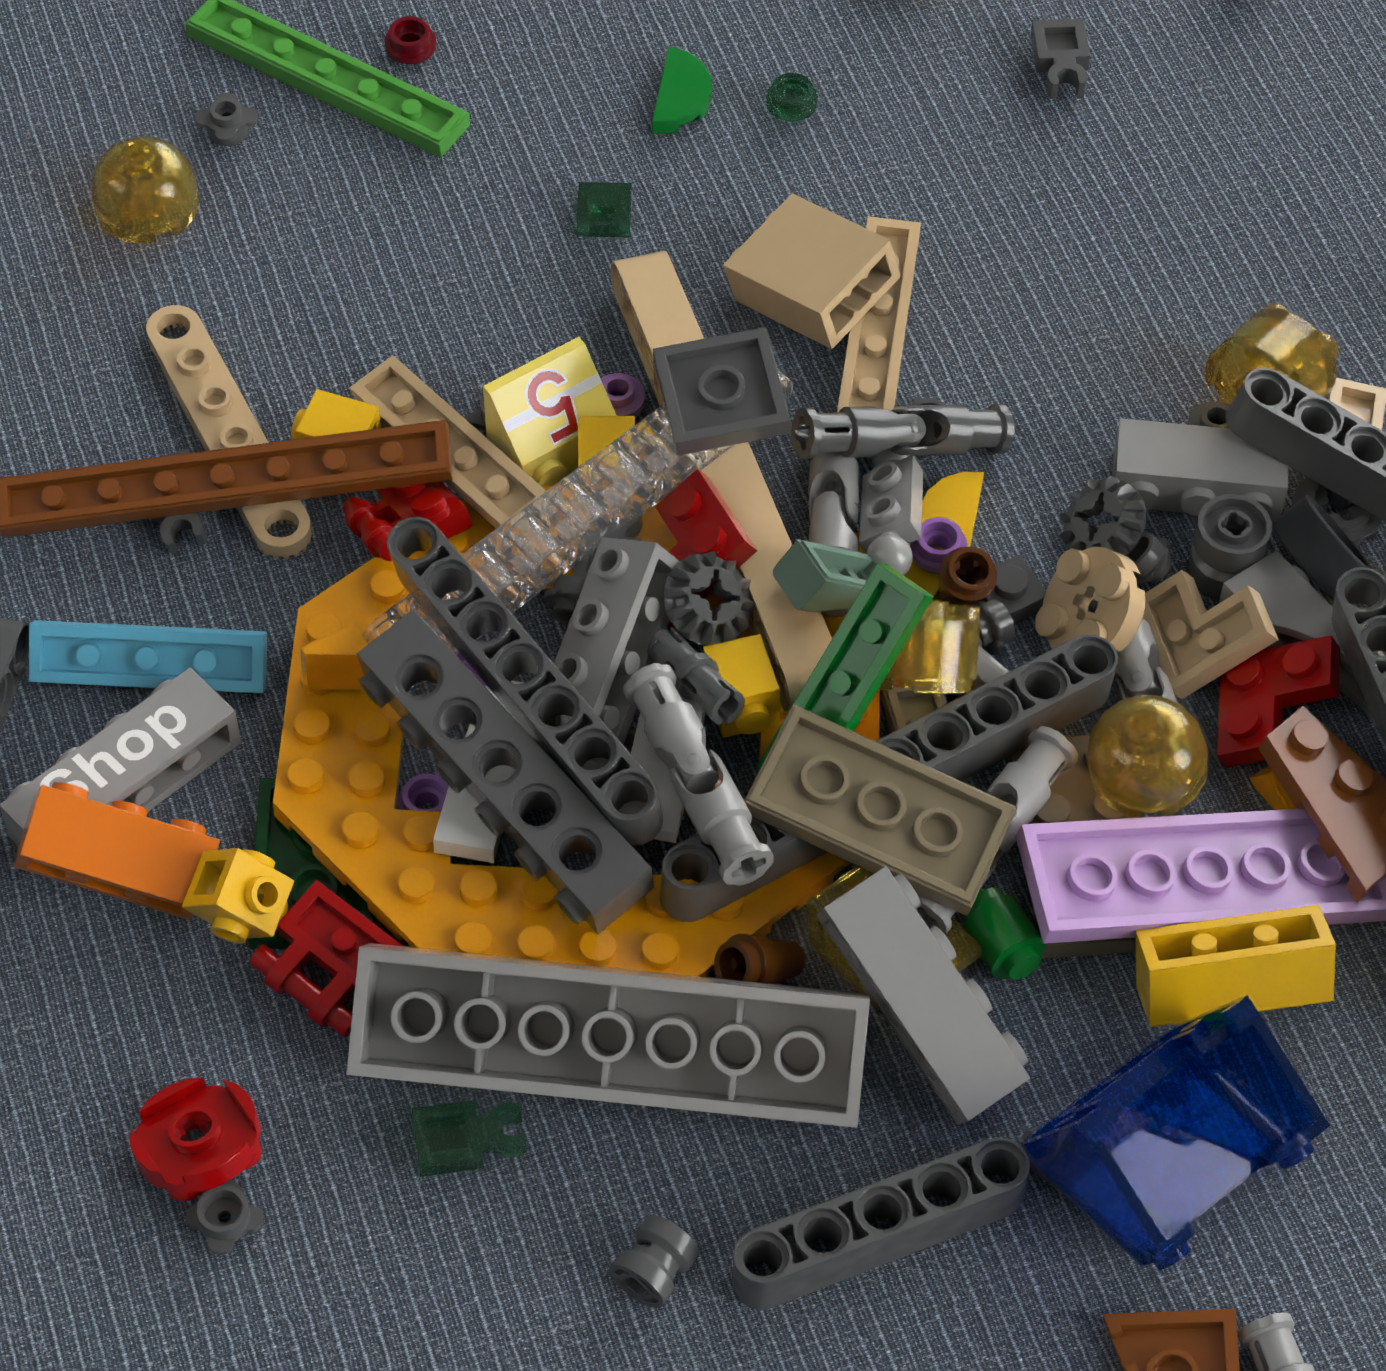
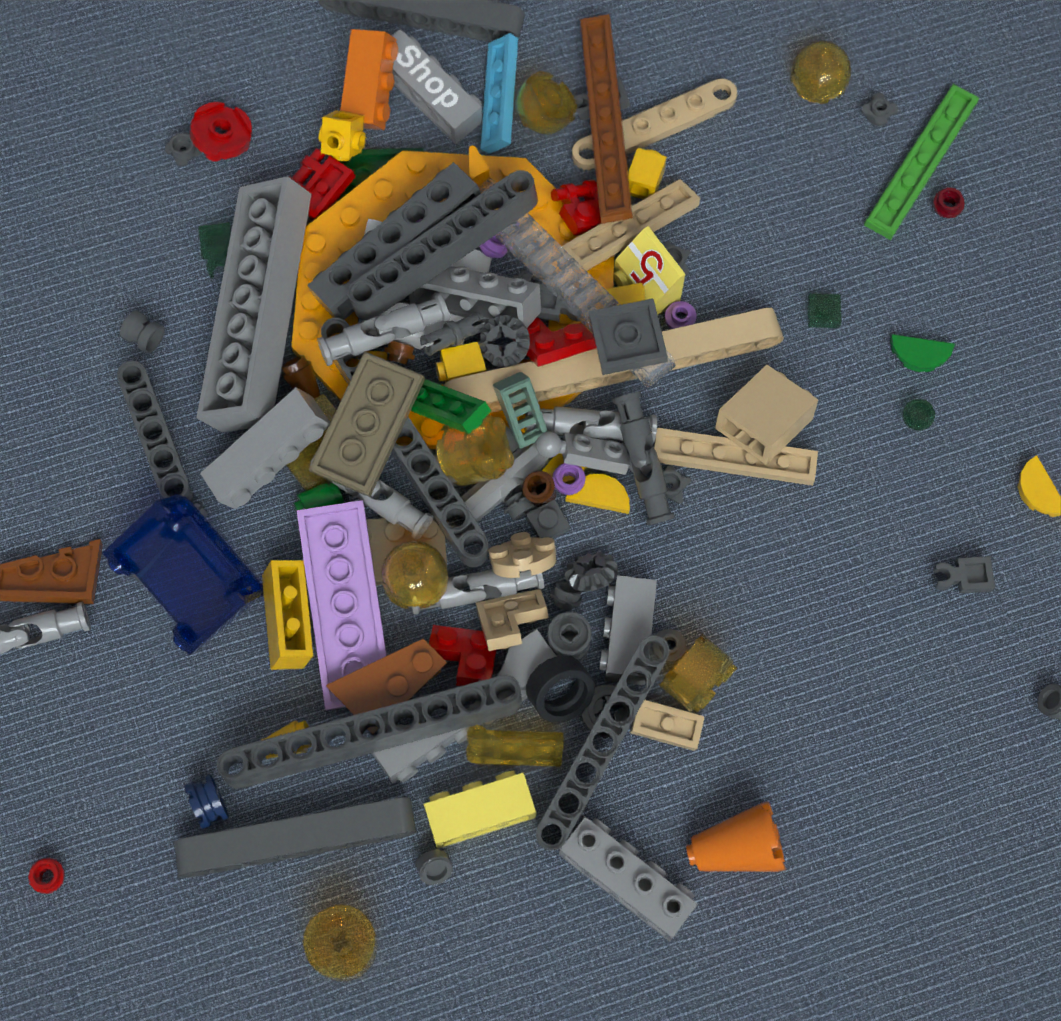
camera: 90 degrees right, 15 degrees up
(192, 575) = (545, 104): none -> clear yellow cylinder

